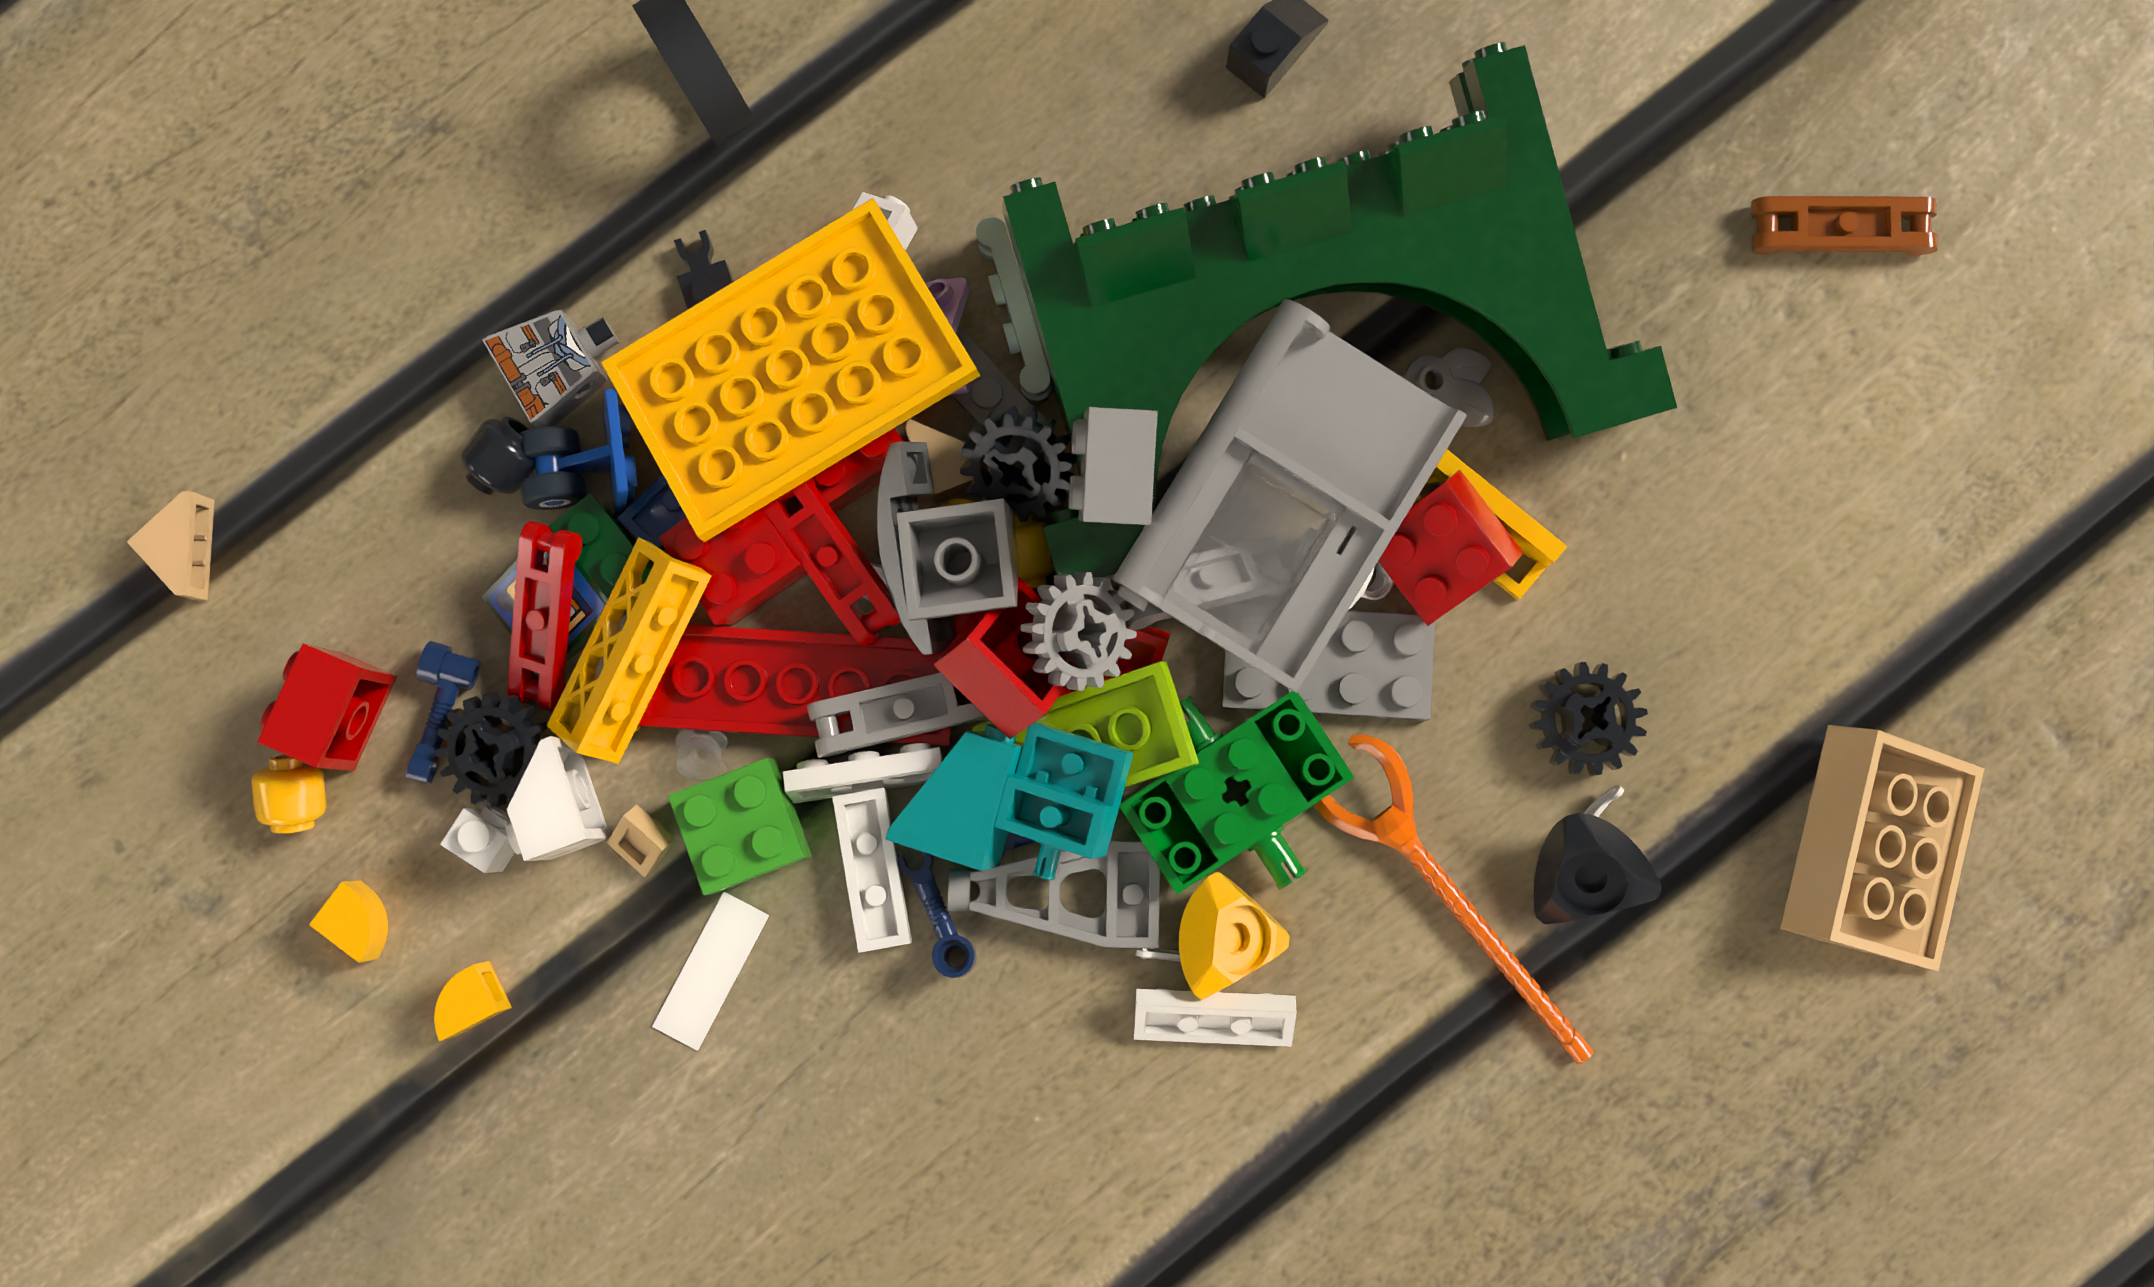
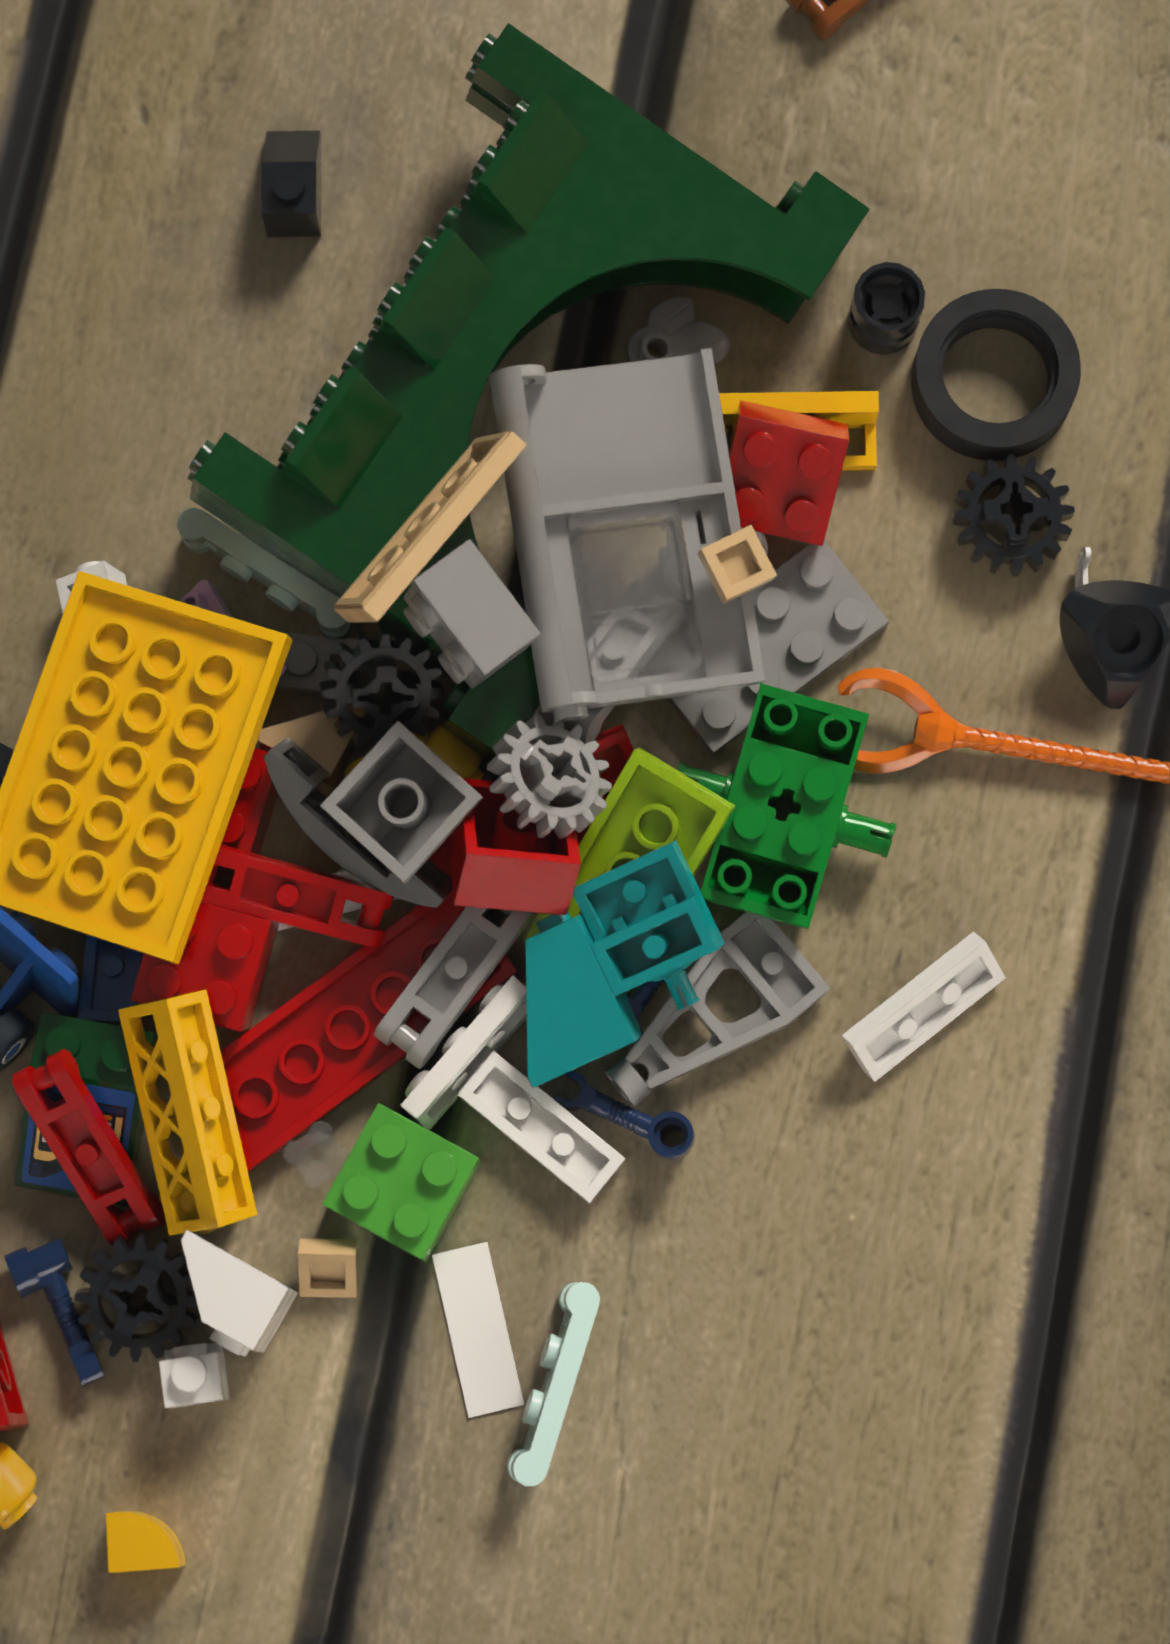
camera: 45 degrees left, 5 degrees down
(469, 1000) = (298, 1525): yellow brick -> none
(708, 1069) = (548, 1407): none -> light aqua plate
(1141, 376) = (428, 527): none -> tan tile
(1222, 937) = (873, 935): yellow hat -> none
(1347, 591) = (737, 564): none -> tan plate
(1627, 489) = (886, 308): none -> black wheel
(1716, 567) = (1014, 313): none -> black tyre

